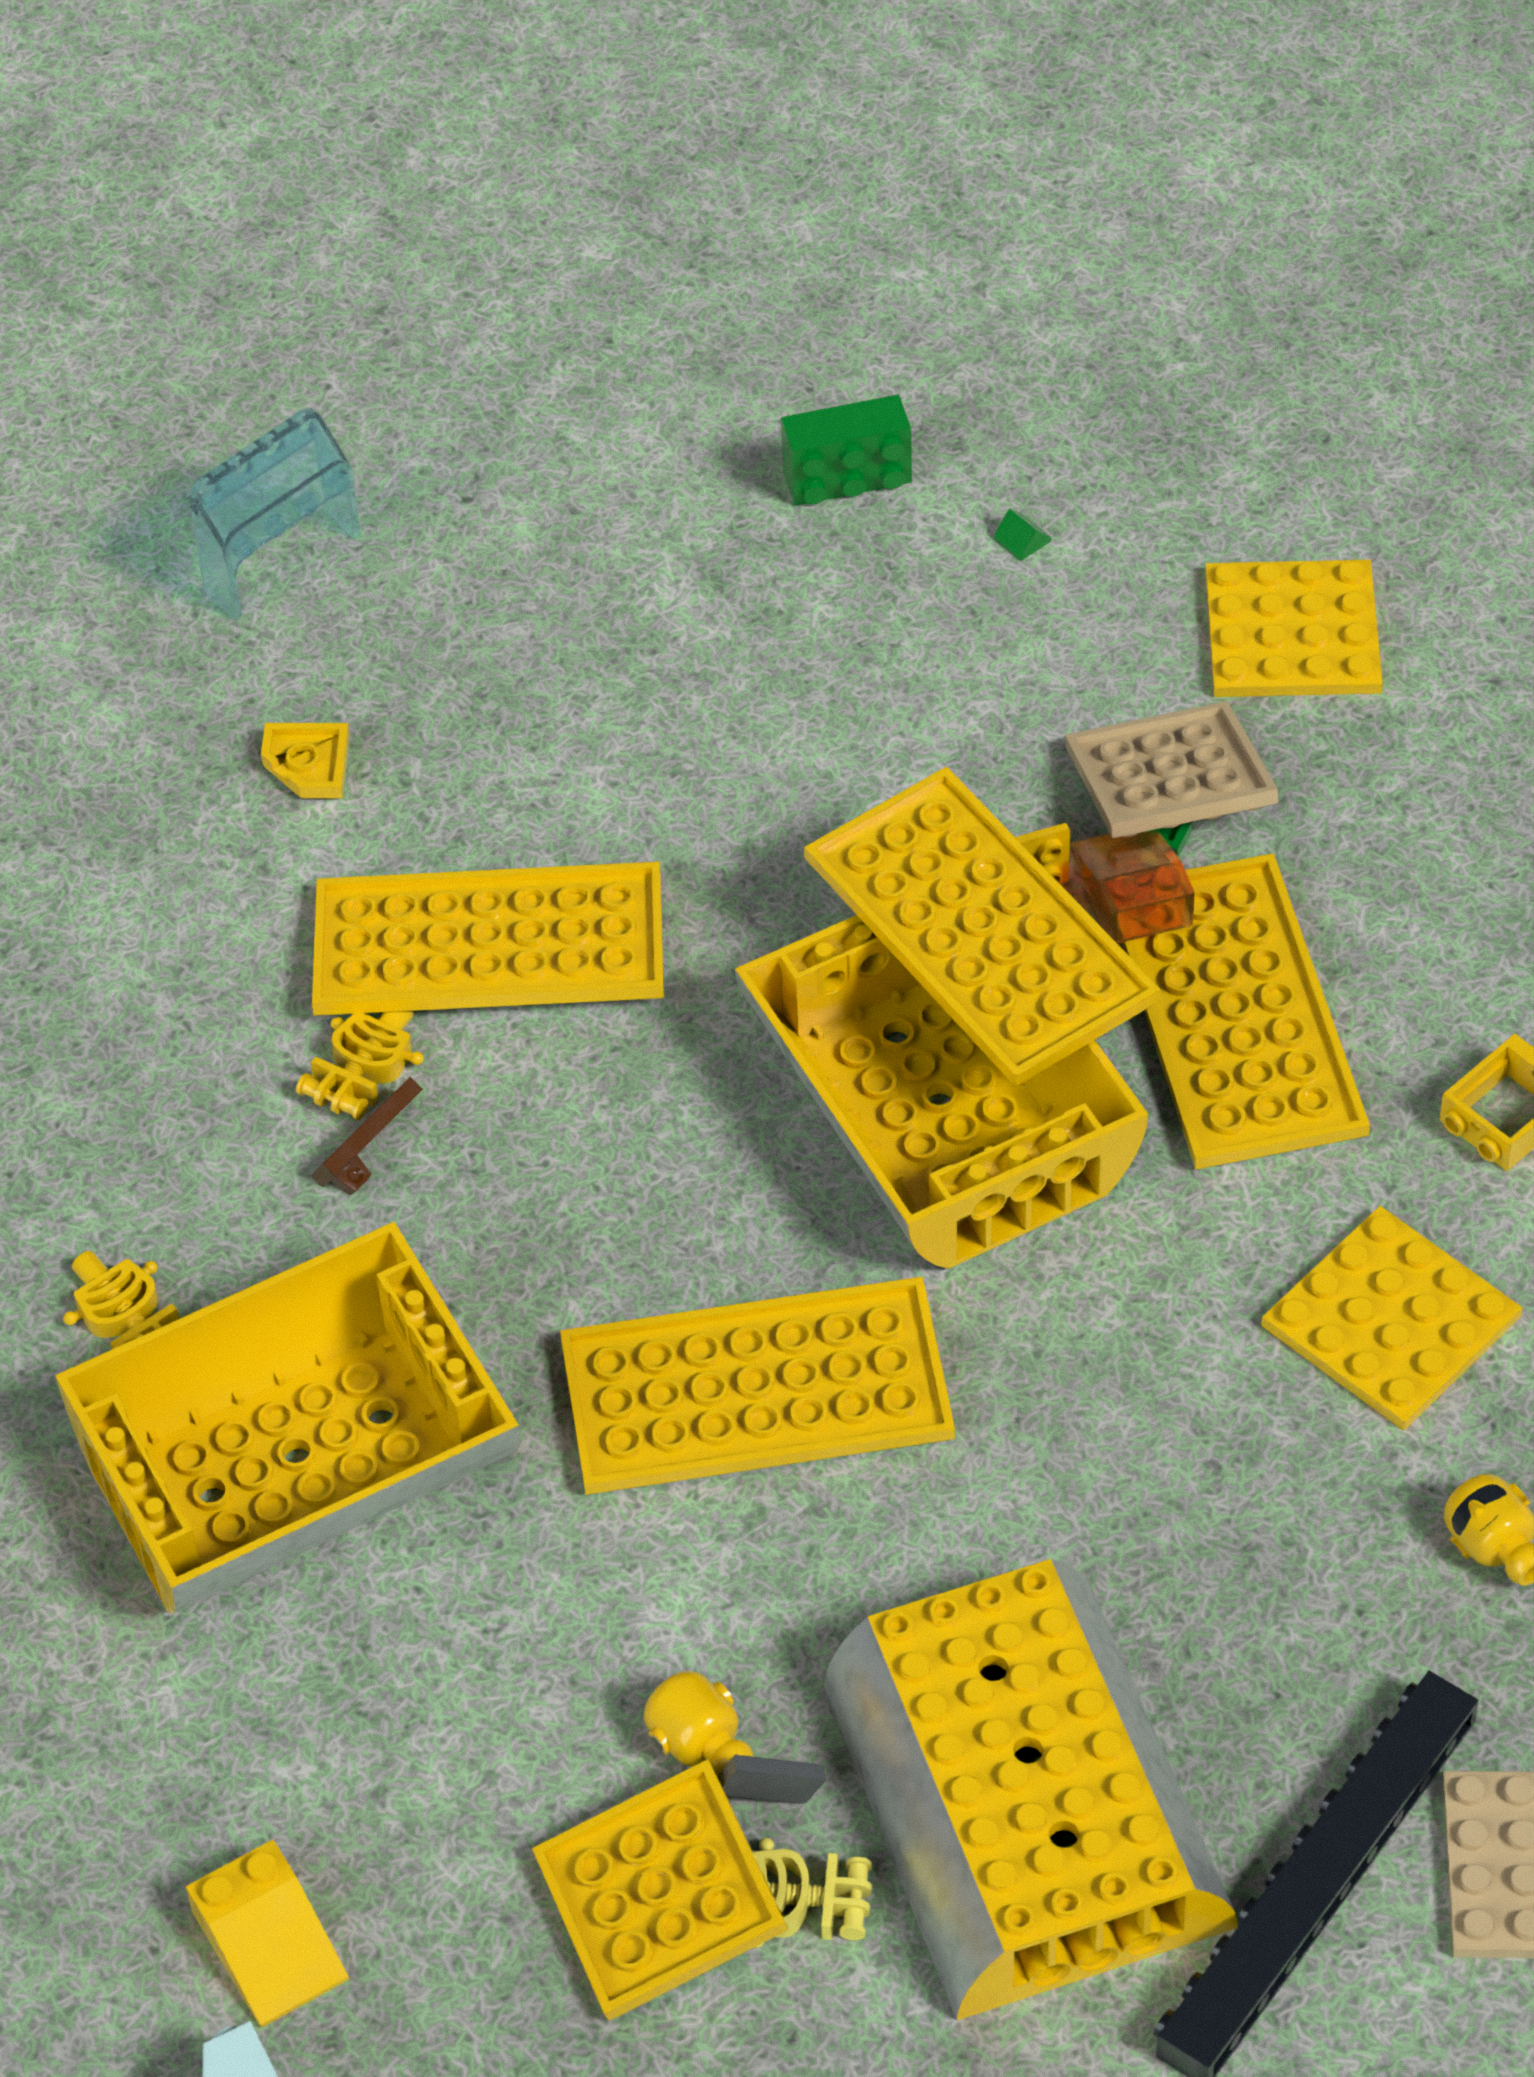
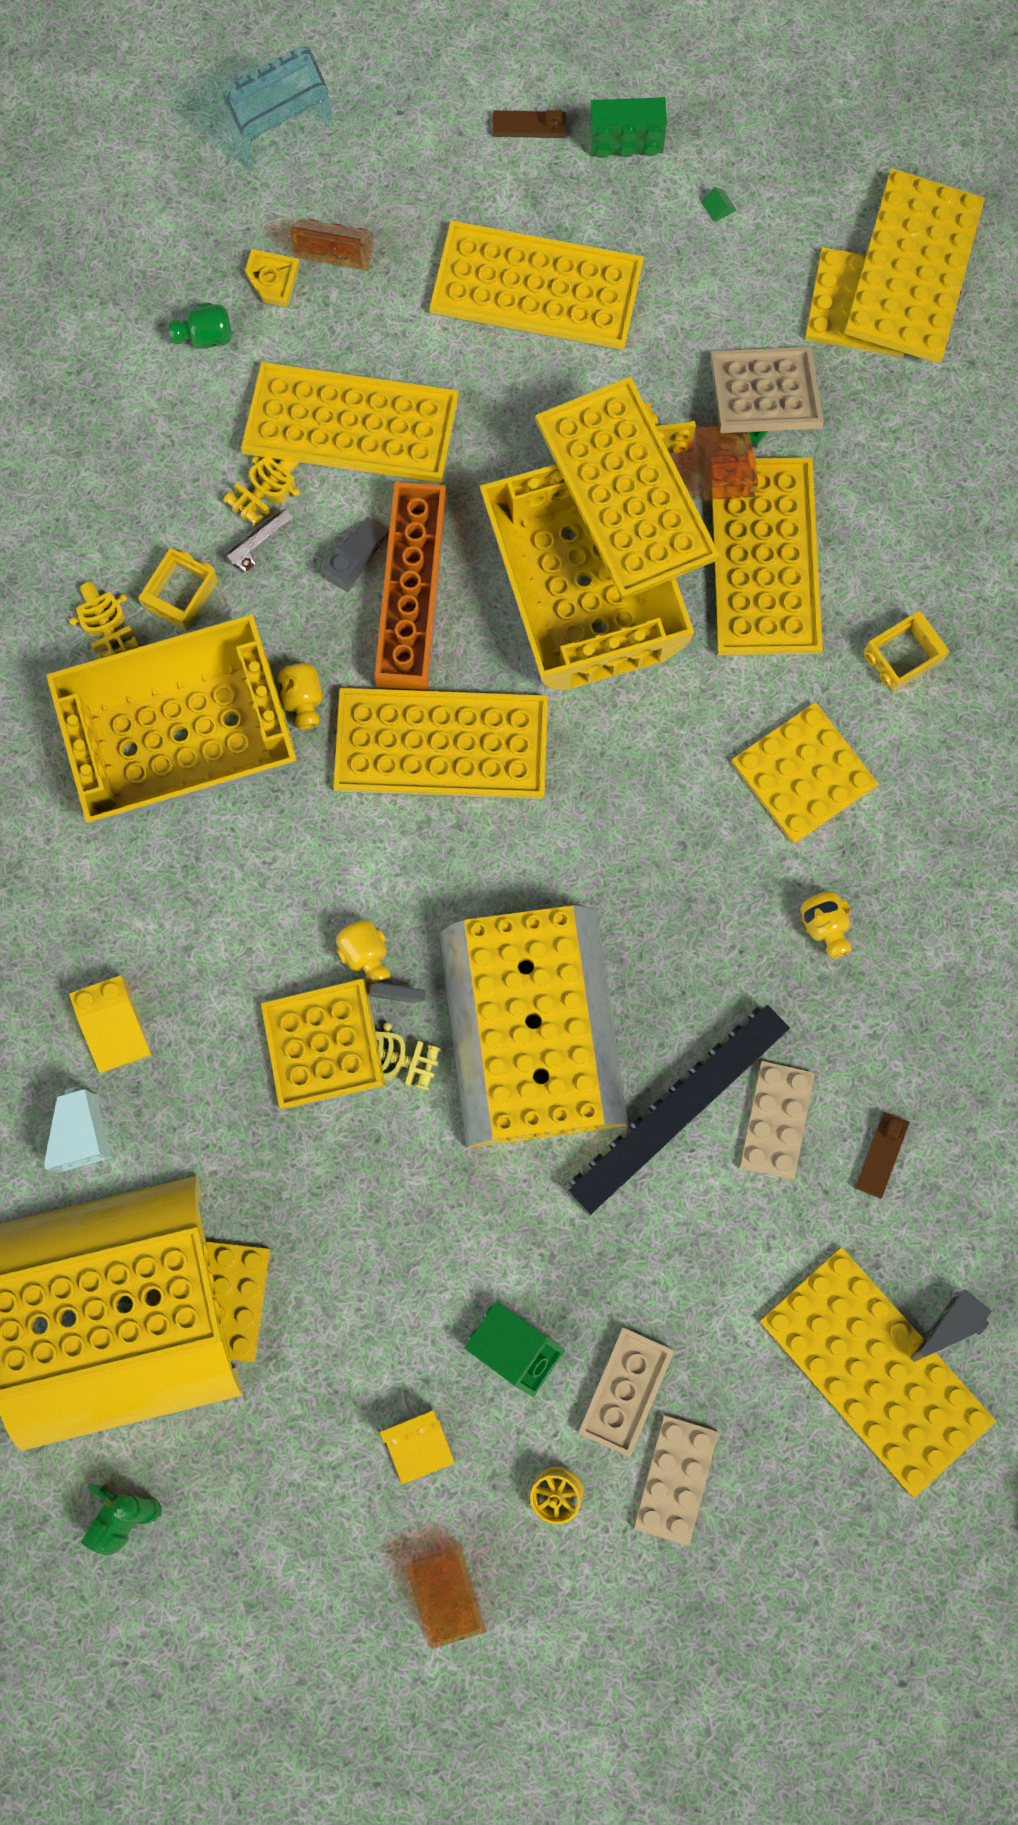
camera: 10 degrees right, 25 degrees up
(210, 845) = (205, 326): none -> green piece
(233, 1269) = (173, 558): none -> yellow window
(401, 694) = (332, 244): none -> clear orange slope
(501, 1346) = (301, 693): none -> yellow piece
(537, 1133) = (354, 554): none -> dark grey slope
(649, 1156) = (411, 587): none -> orange brick
(685, 478) = (529, 124): none -> reddish brown hinge
(752, 694) = (537, 285): none -> yellow plate
(1363, 561) = (914, 266): none -> yellow plate

